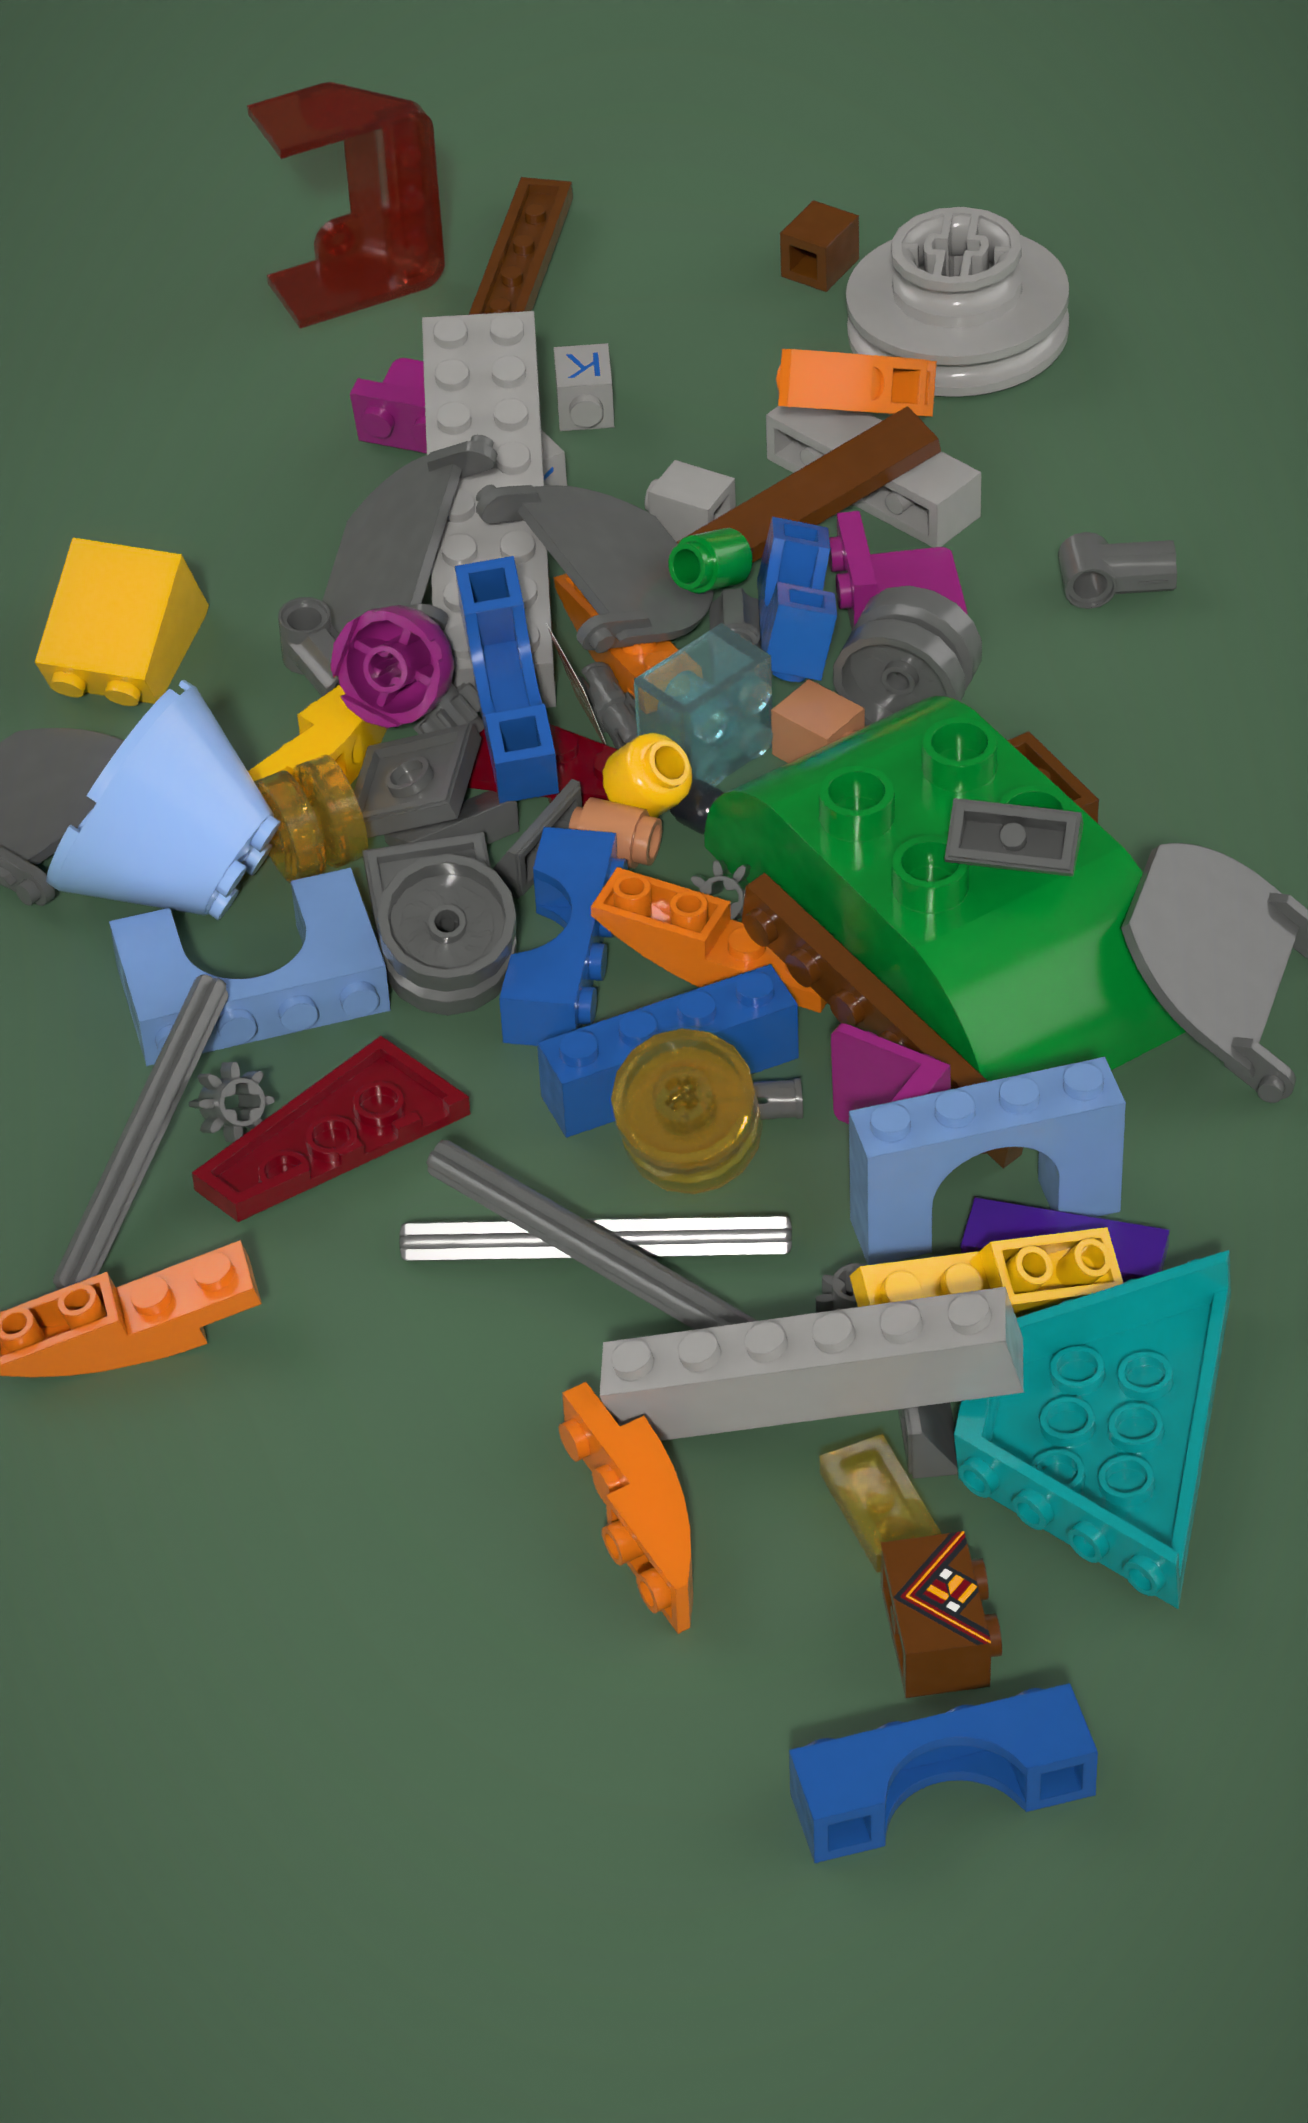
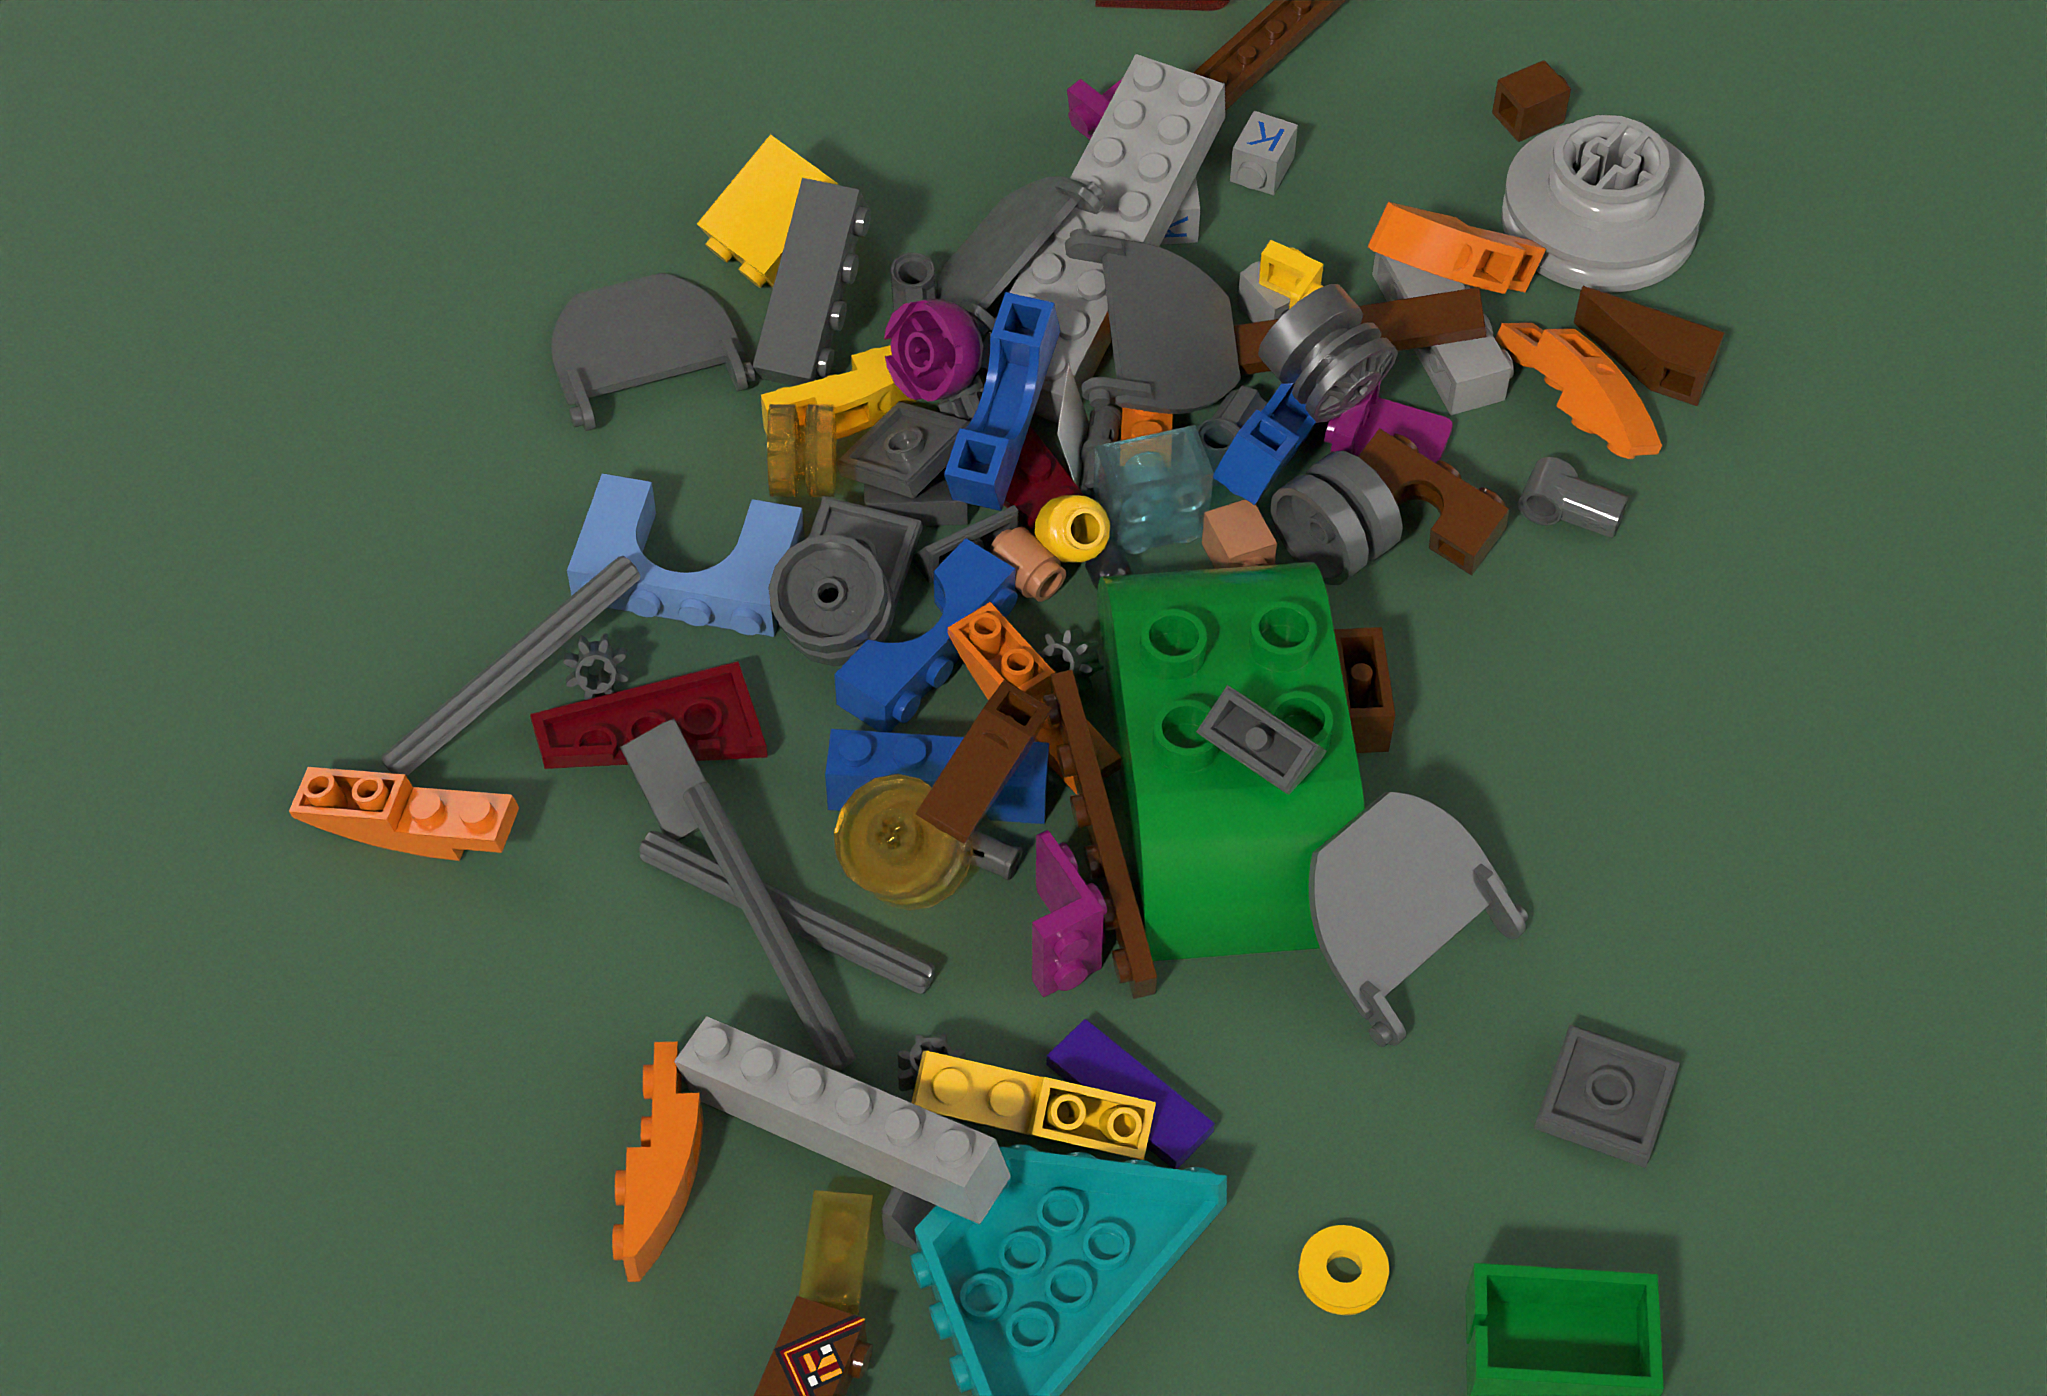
camera: 25 degrees right, 10 degrees up
(169, 817) = (688, 404): light blue cone -> none
(211, 641) = (812, 283): none -> dark grey brick
(389, 1163) = (664, 773): none -> dark grey slope
(710, 560) = (1235, 359): green brick -> none
(713, 468) = (1289, 272): none -> yellow bracket
(741, 980) = (984, 761): none -> reddish brown slope
(826, 507) = (1327, 352): none -> flat silver wheel
(914, 1143) = (1157, 992): medium blue arch -> none
(1023, 613) = (1469, 516): none -> reddish brown arch
(1065, 461) = (1592, 385): none -> orange slope
(1091, 409) = (1655, 347): none -> reddish brown slope

